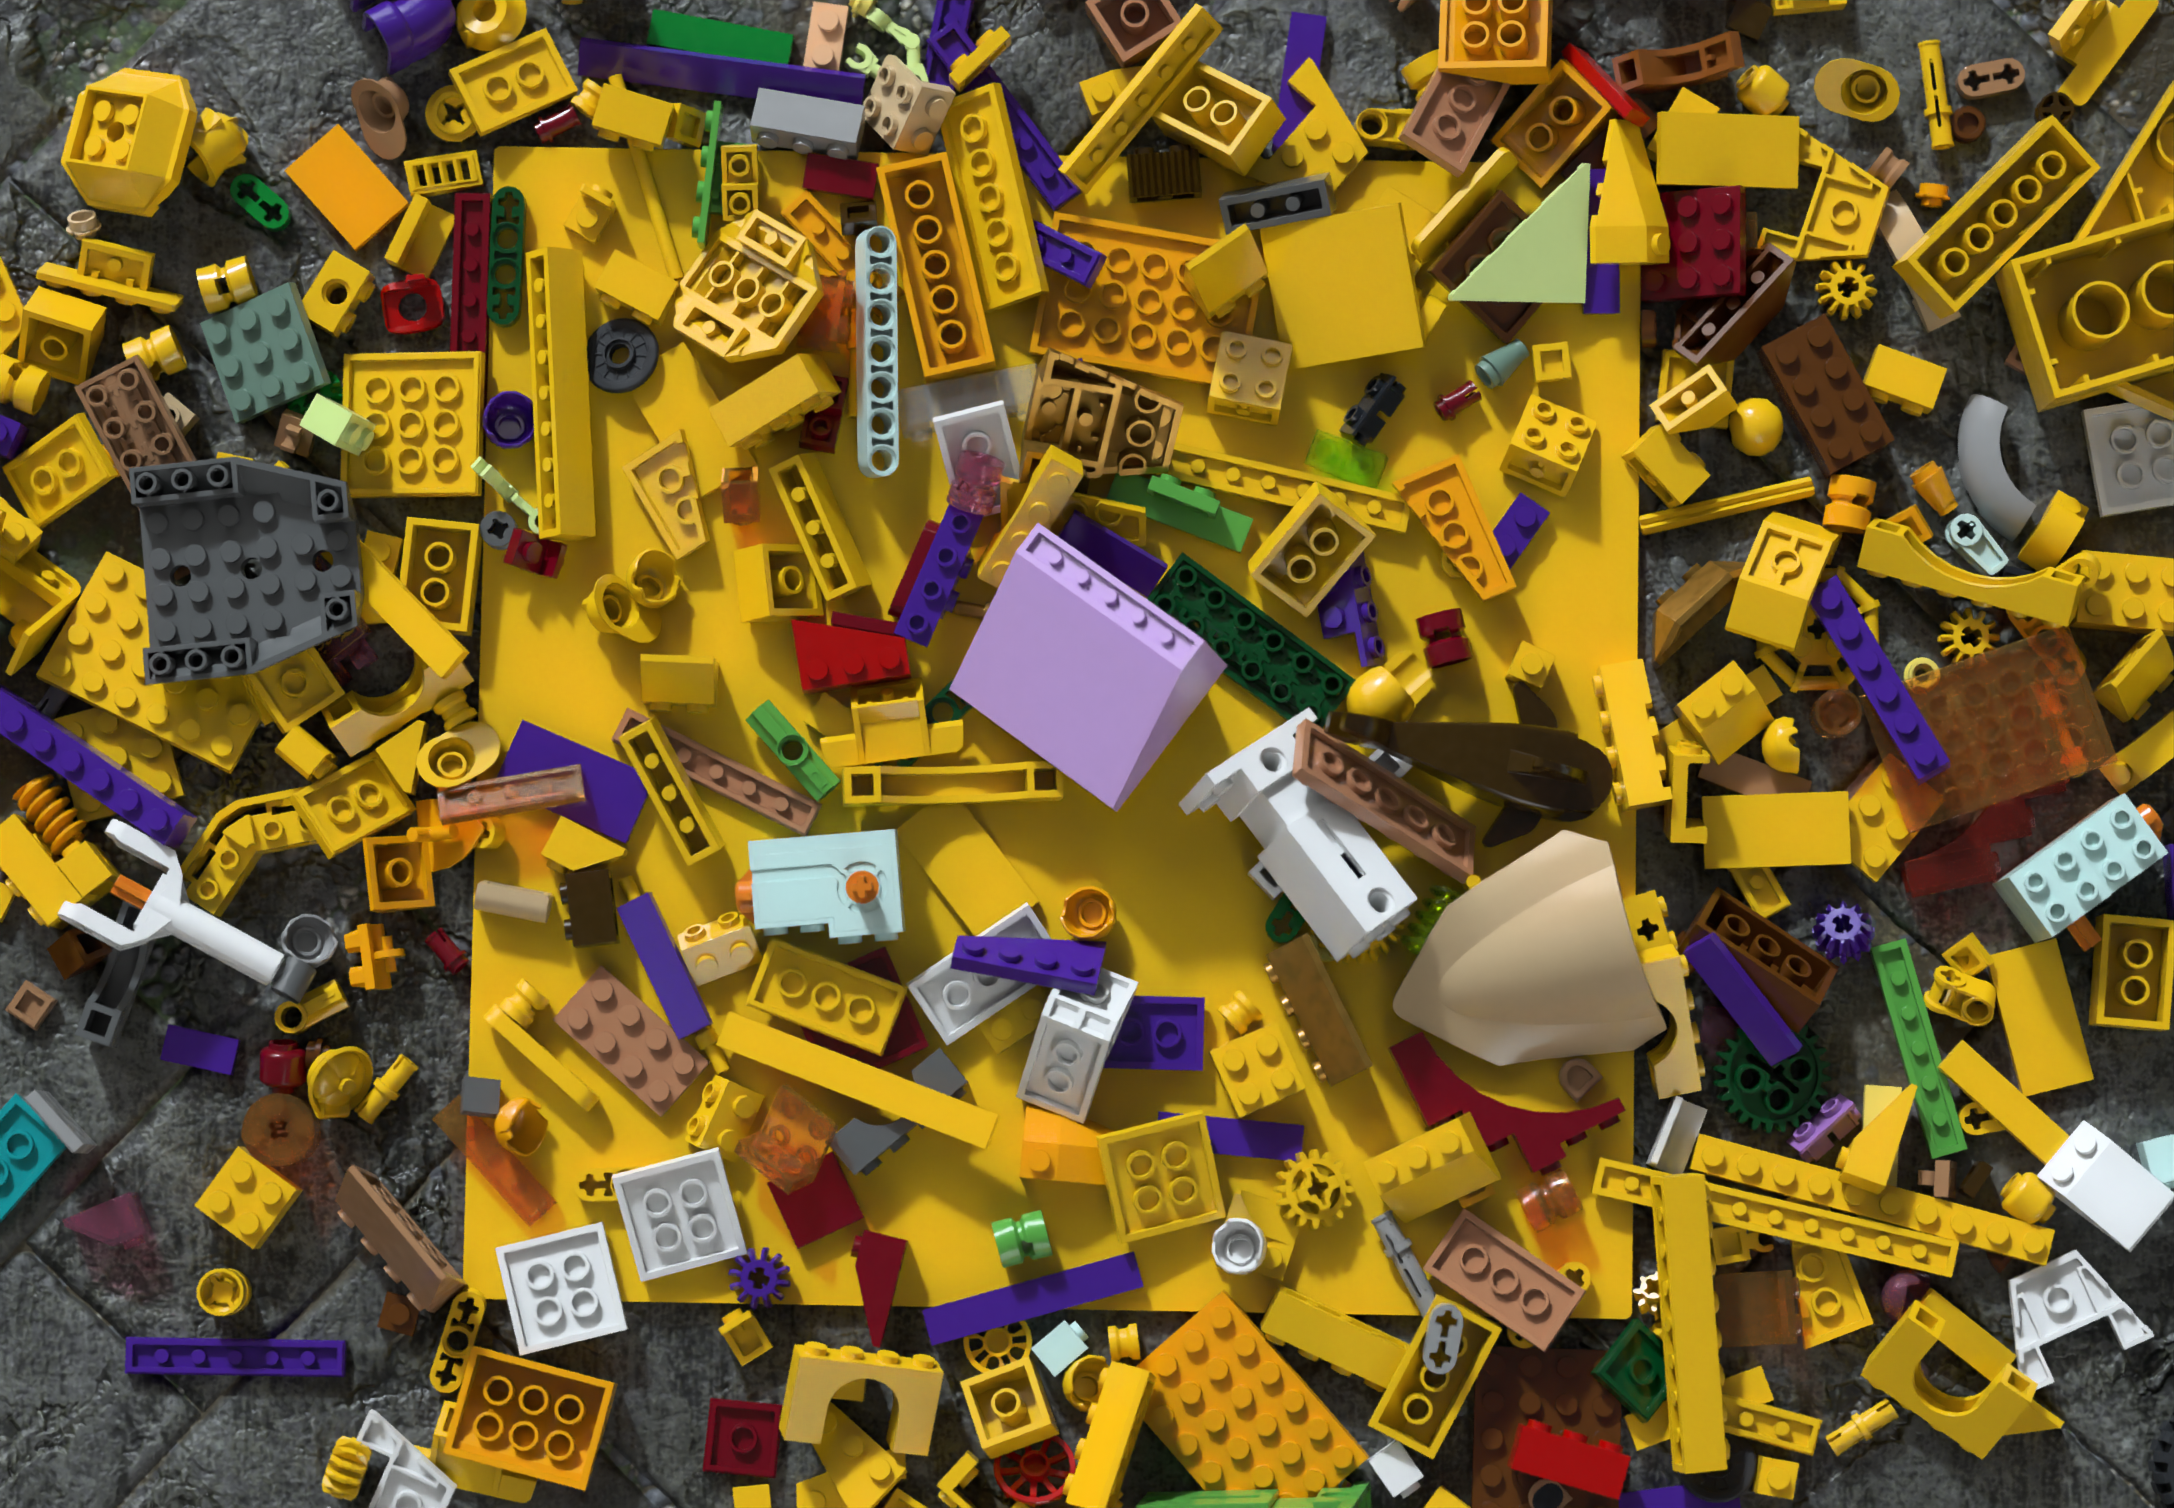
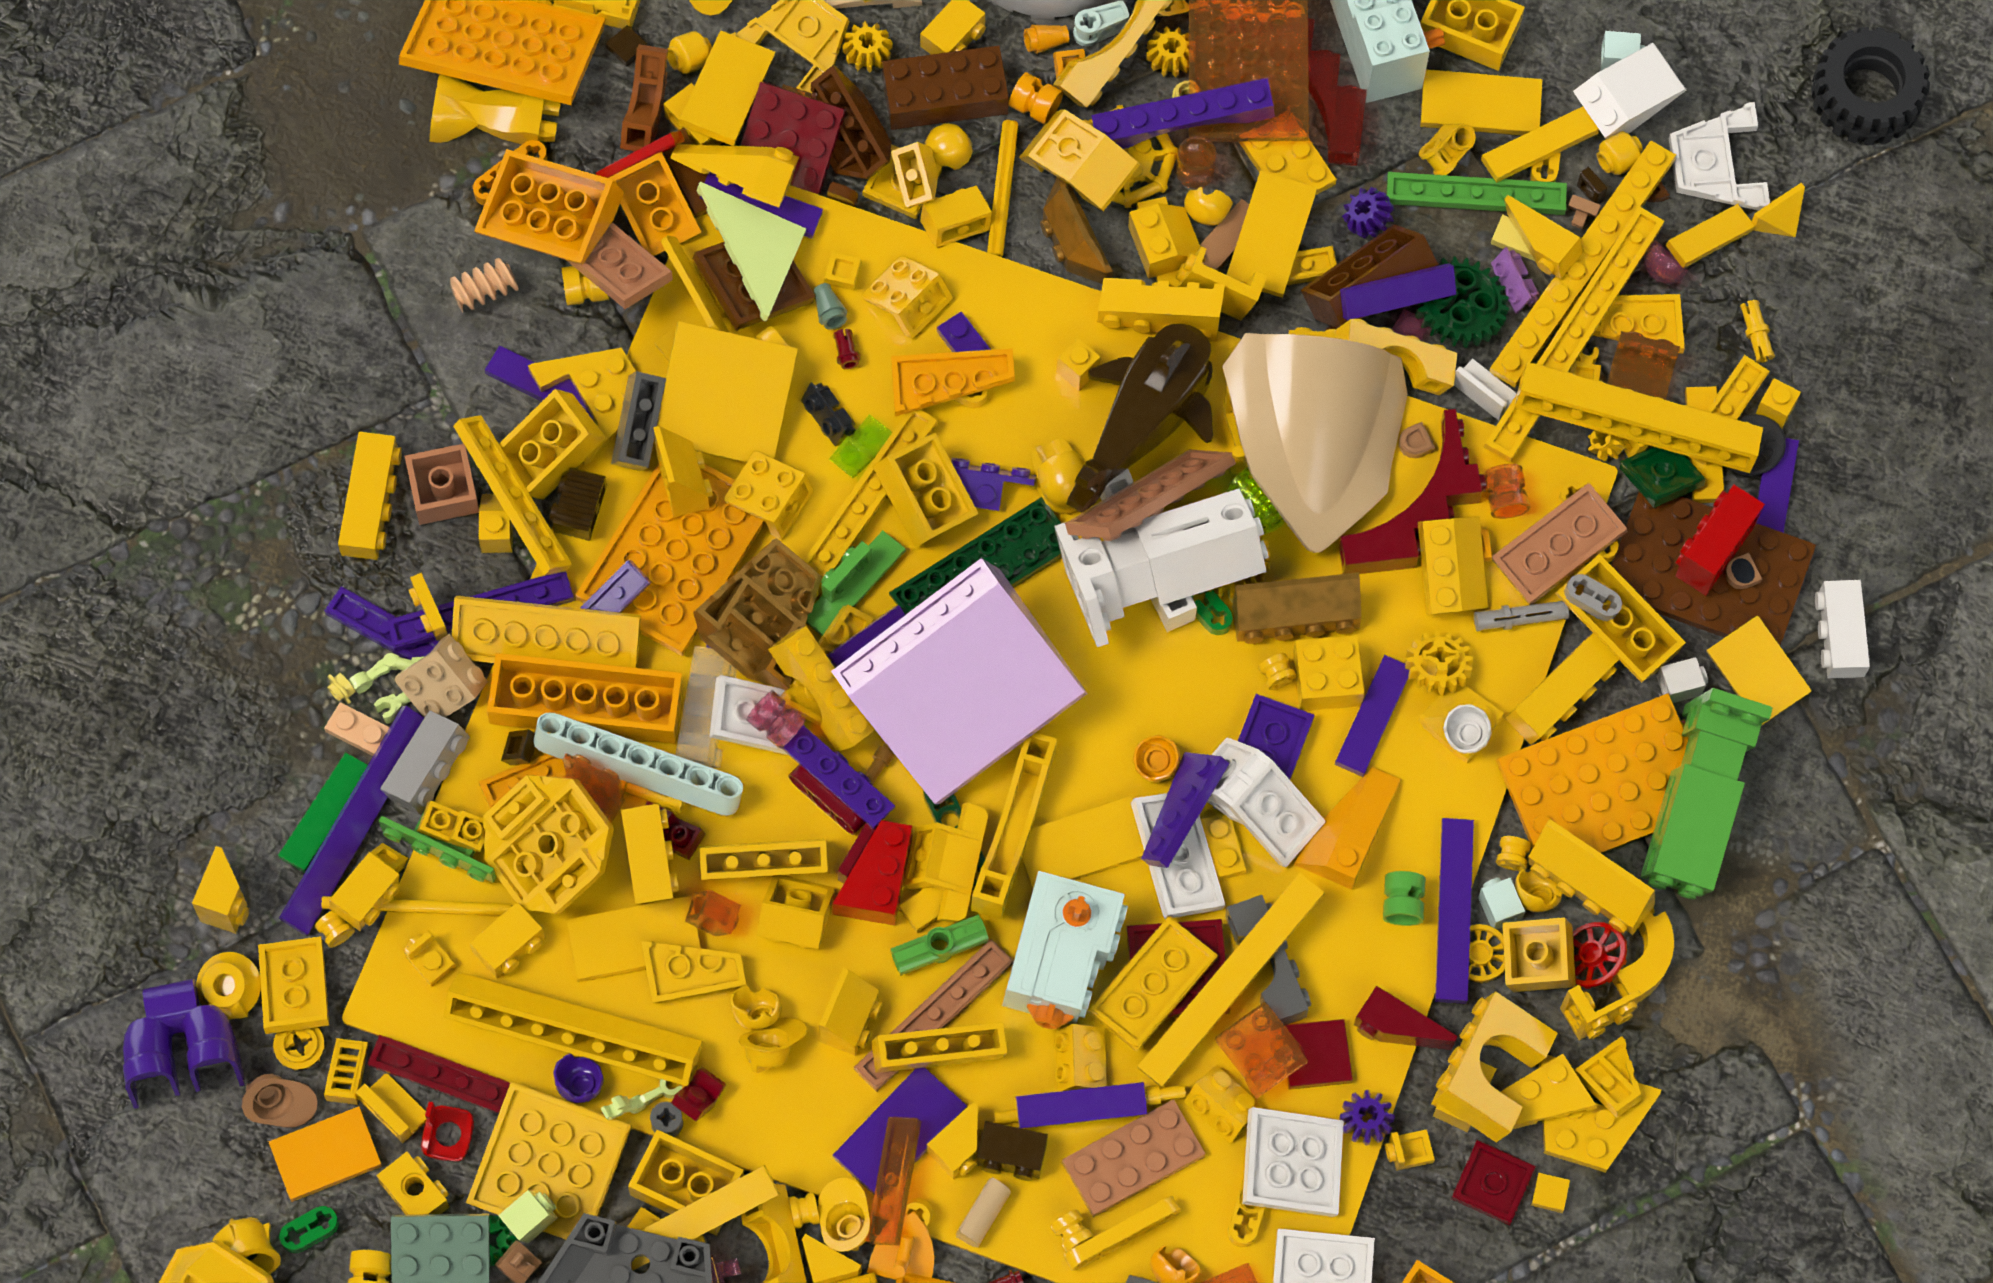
camera: 75 degrees left, 15 degrees down
(501, 256) = (436, 1043): dark green beam -> none
(556, 124) = (341, 964): dark red pin -> none
(636, 369) = (556, 953): black wheel -> none
(840, 177) = (478, 752): dark red tile -> none
(1161, 1176) = (1390, 772): yellow plate -> none
(1390, 124) = (609, 325): yellow piece -> none
(1445, 651) = (1043, 423): dark red wheel -> none
(1968, 956) = (1416, 134): yellow tile -> none
(1971, 1421) = (1780, 247): yellow arch -> none

